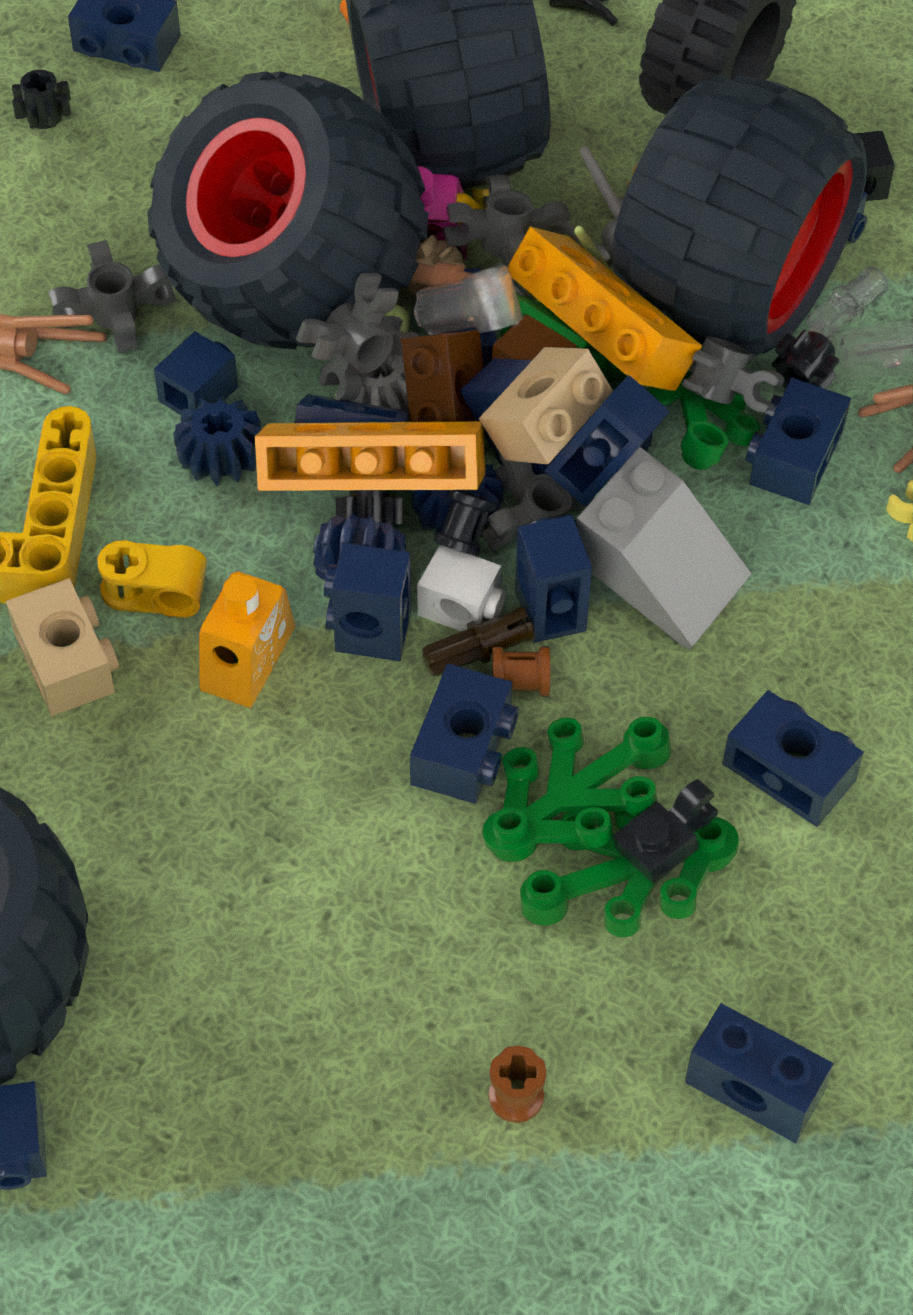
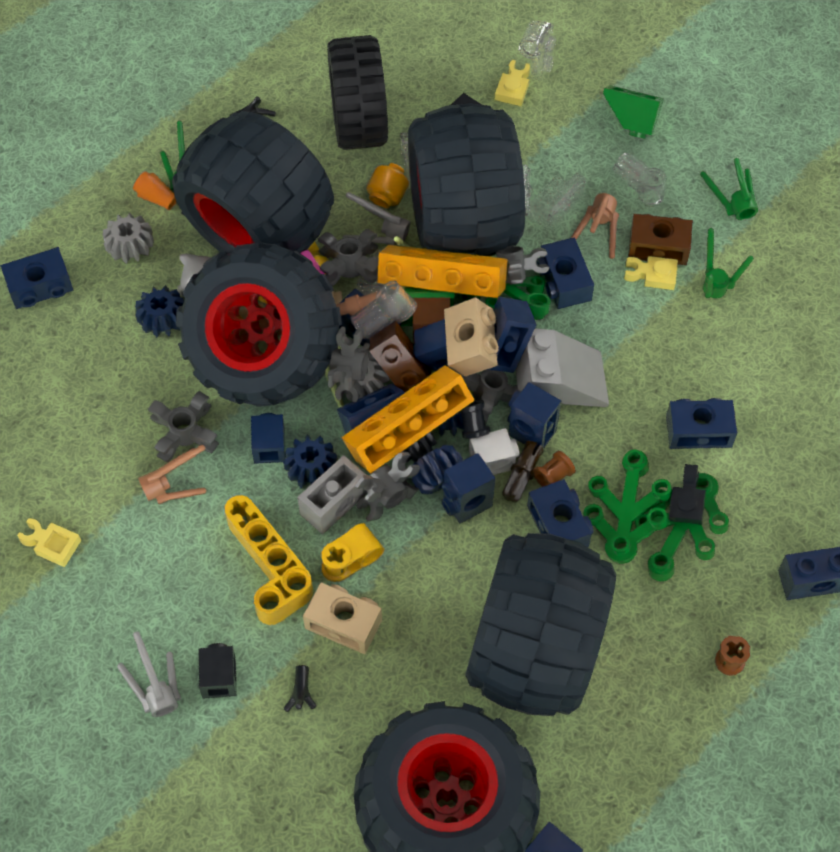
camera: 40 degrees left, 5 degrees up
(41, 99) = (35, 347): black gear -> none
(197, 491) = (331, 495): none -> light grey brick
(252, 808) = (542, 625): none -> black wheel
(255, 624) = (424, 543): light orange torso -> none
(269, 526) = (387, 486): none -> dark grey pin
(276, 44) = (128, 238): none -> light grey gear
(806, 358) = (535, 232): black gear -> none

